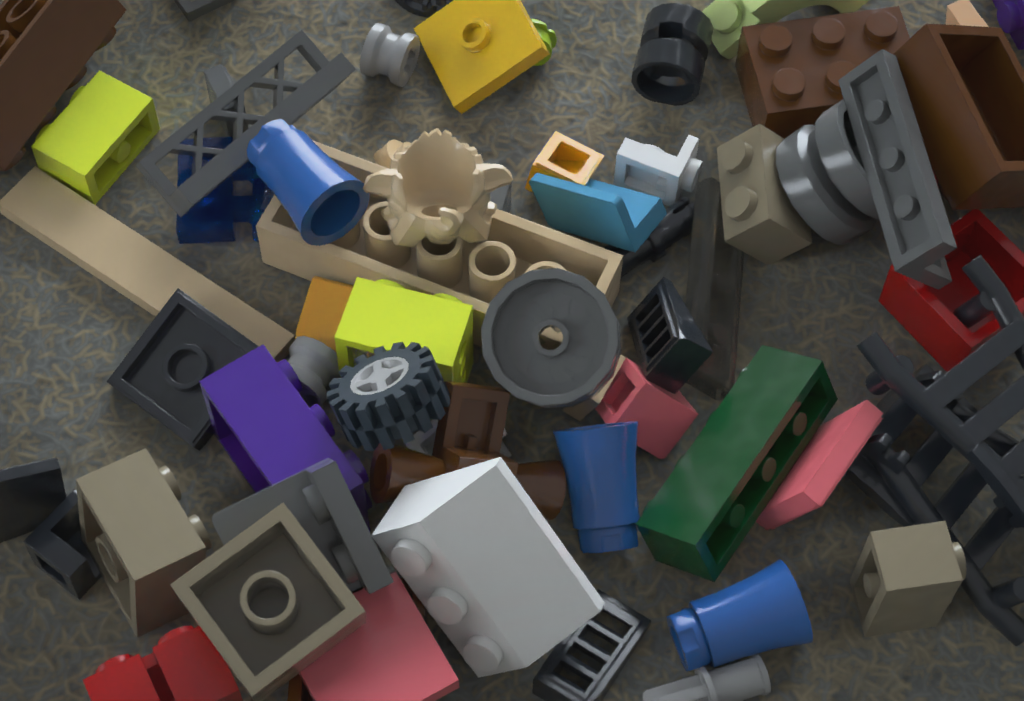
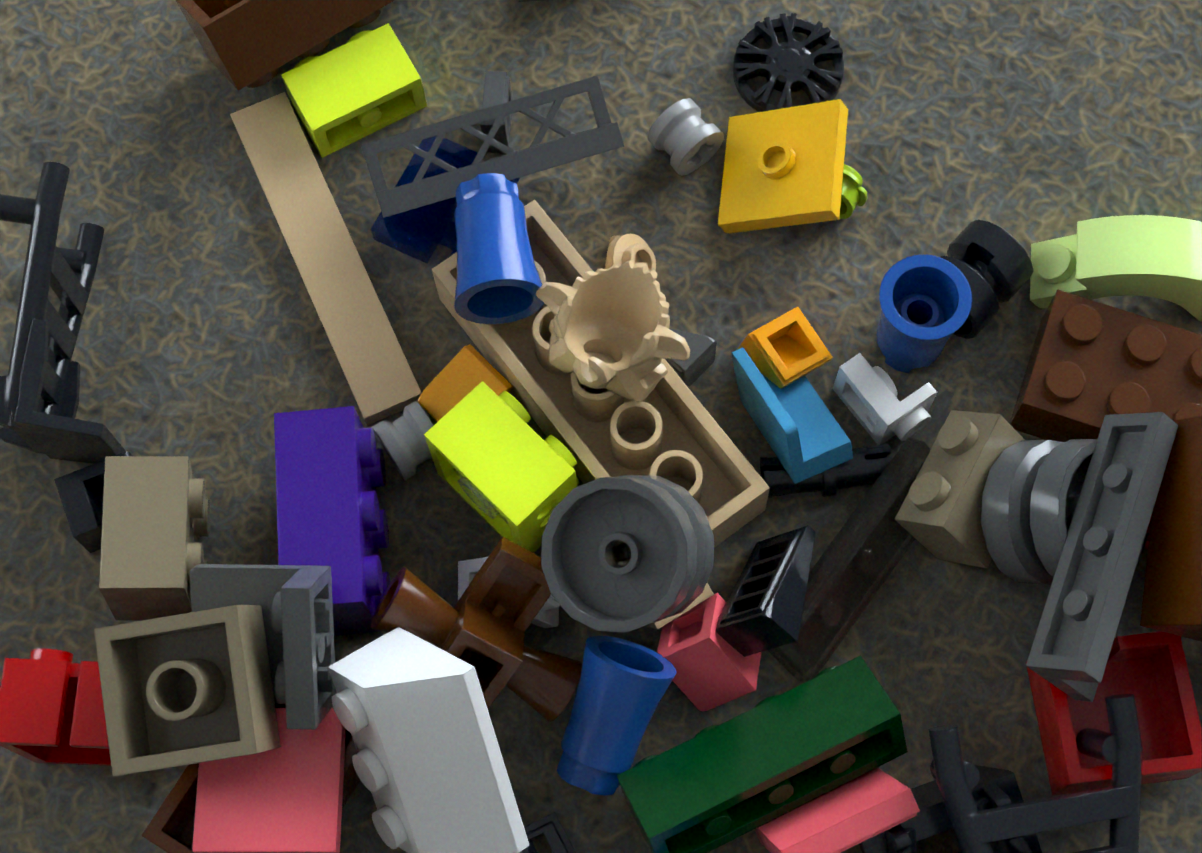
camera: 35 degrees right, 10 degrees up
(172, 358) = (302, 366): black plate -> none
(388, 396) = (433, 527): black wheel -> none
(655, 81) = (920, 309): none -> blue plant

